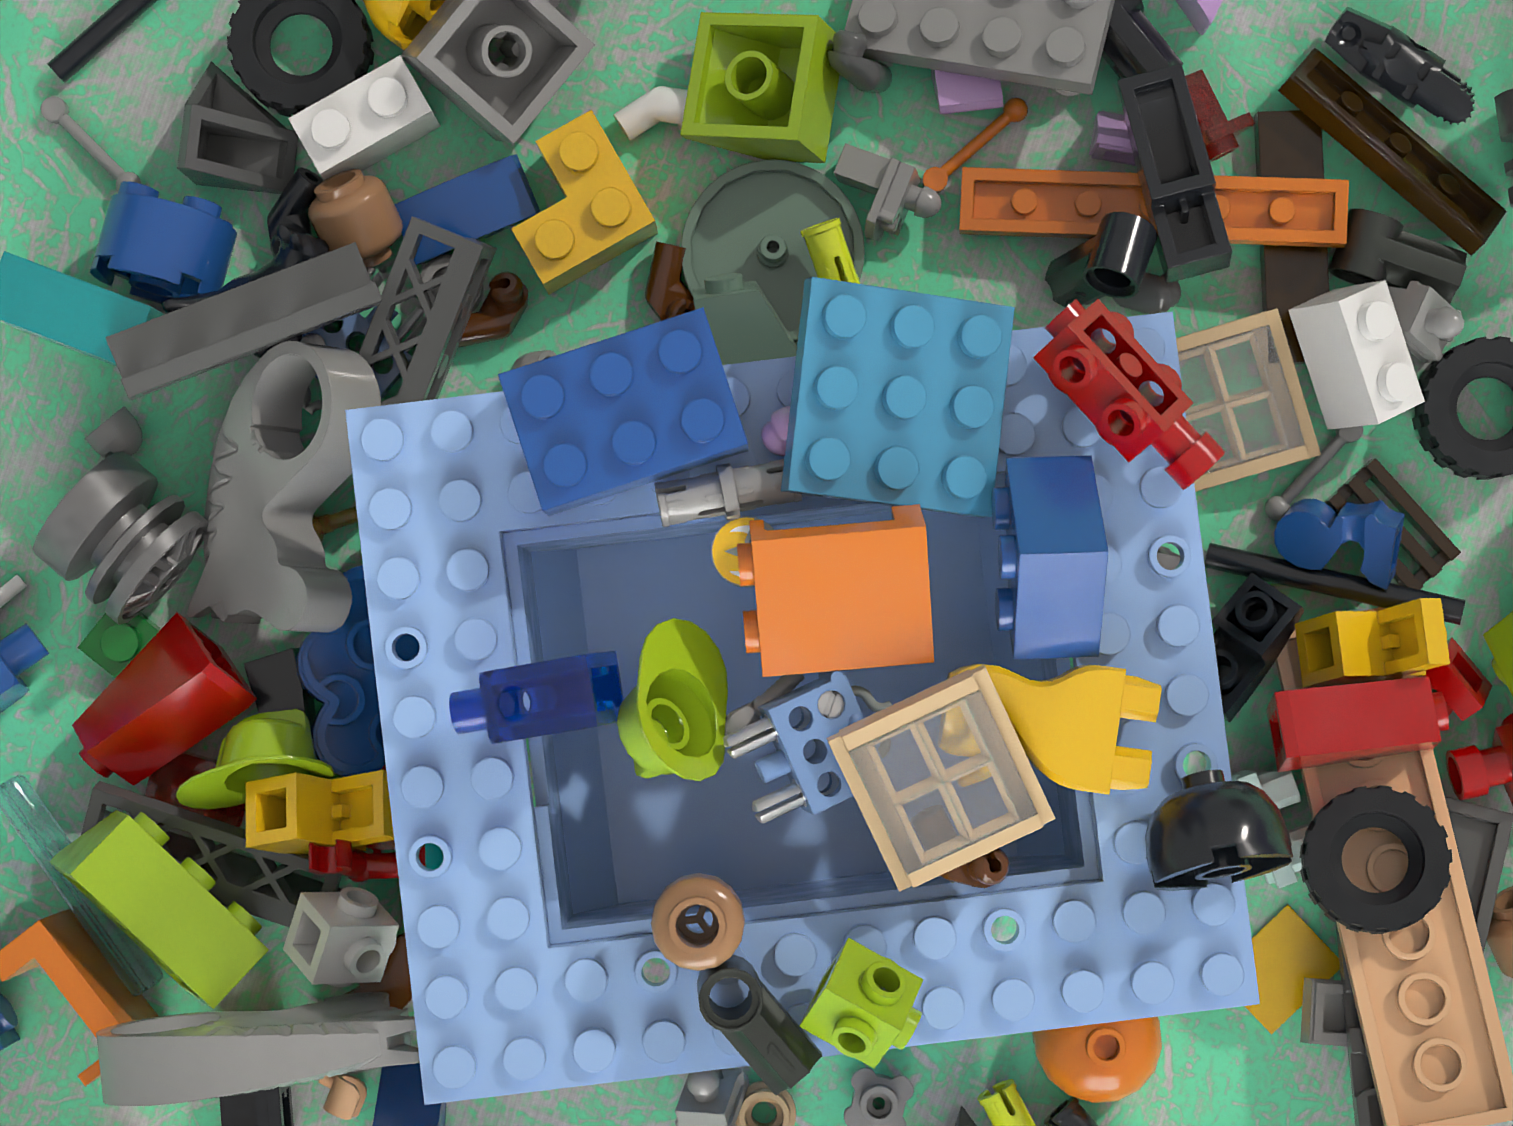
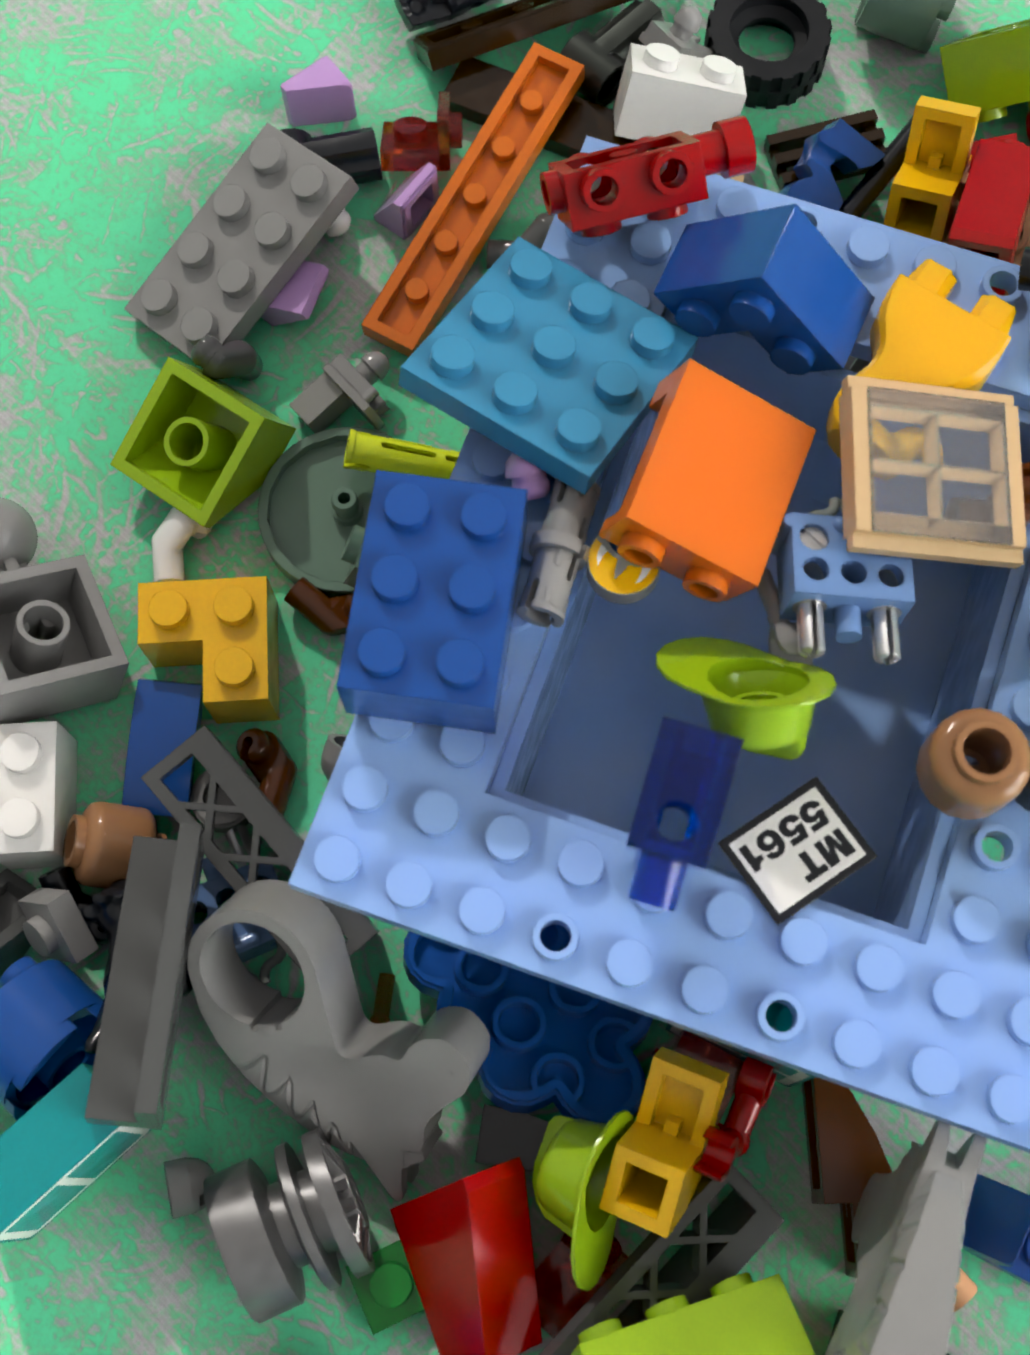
camera: 60 degrees left, 15 degrees down
(262, 210) = (56, 925): none -> light grey plate
(341, 937) = (799, 1190): white brick -> none
(575, 810) = (797, 850): none -> sticker
(1013, 111) = (337, 275): orange hinge -> none
(1106, 264) = (499, 218): black piece -> none
(1174, 173) = (459, 153): black slope -> none

